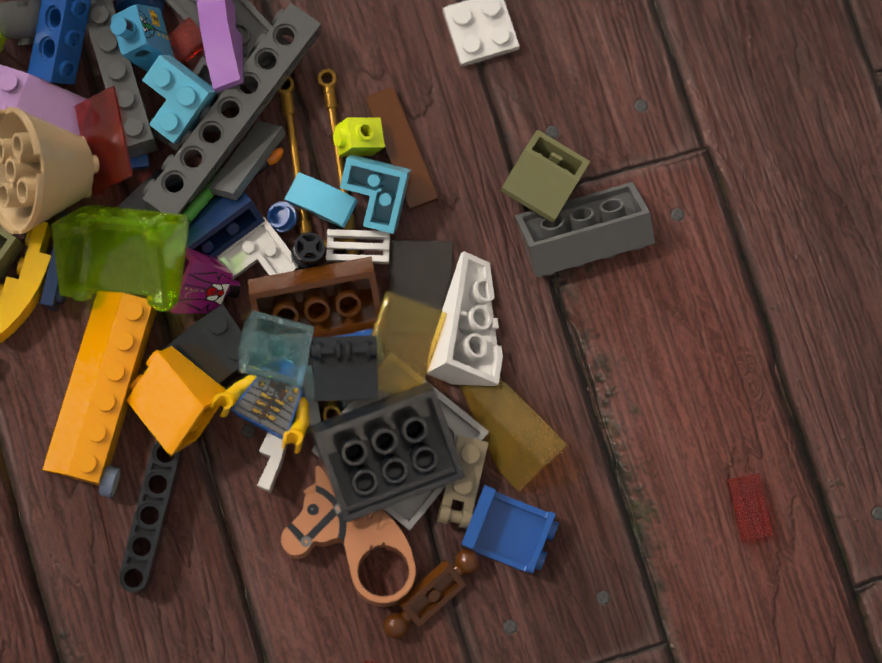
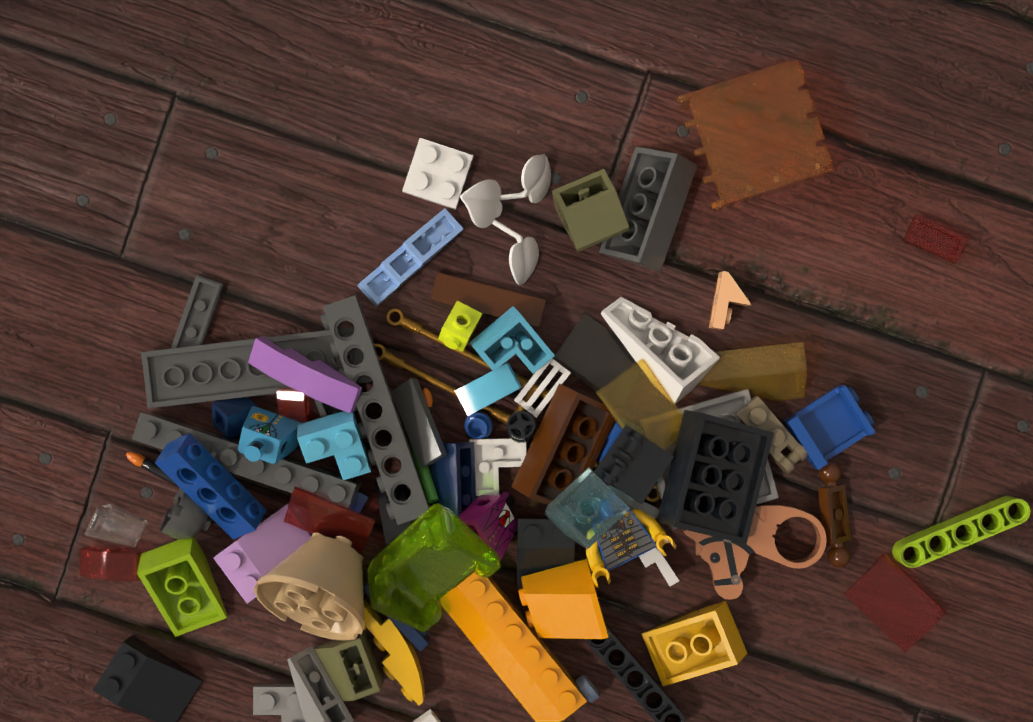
camera: 50 degrees left, 10 degrees up
(220, 550) = (695, 644): none -> yellow slope
(389, 55) = (410, 257): none -> light blue slope
(479, 75) = (485, 205): none -> white plant
(559, 351) = (726, 292): none -> light nougat slope
(715, 270) = (758, 134): none -> clear orange windscreen

